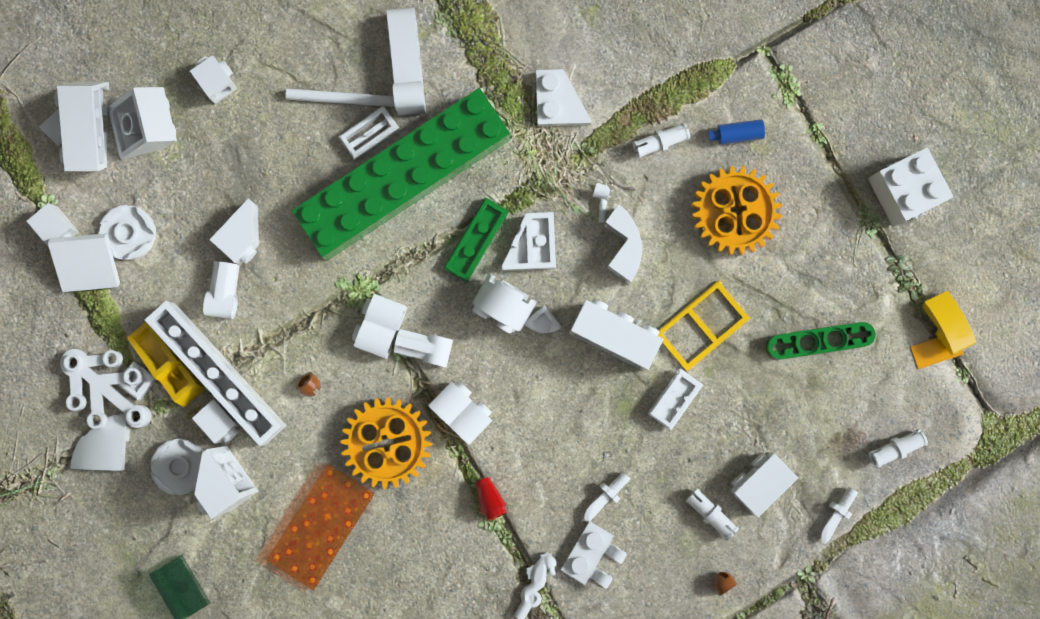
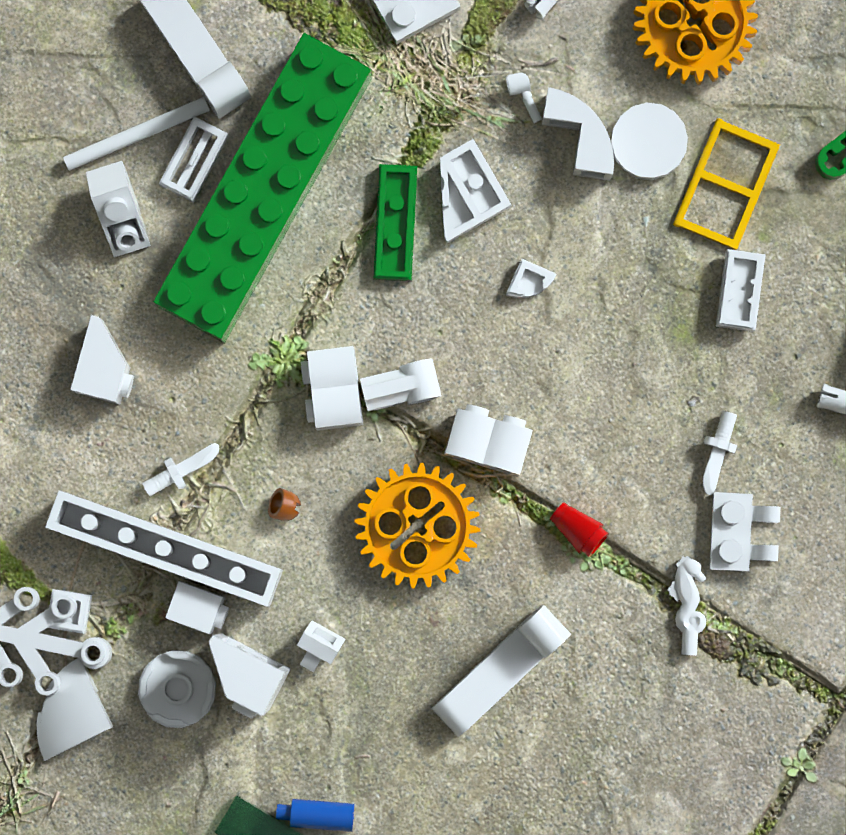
camera: 25 degrees left, 0 degrees up
(165, 365) = (94, 571): yellow slope -> none
(221, 298) = (120, 454): white piece -> none
(224, 596) = (317, 815): none -> blue cylinder
(251, 327) = (175, 473): none -> white piece
(283, 487) = (319, 644): none -> white tile
(302, 138) = (117, 208): none -> white slope
(320, 526) = (390, 670): clear orange tile -> none
(392, 564) = (501, 670): none -> white beam
(503, 303) = (471, 281): white brick -> none
(616, 334) = (628, 247): white brick -> none
(666, 272) = (649, 141): none -> white tile

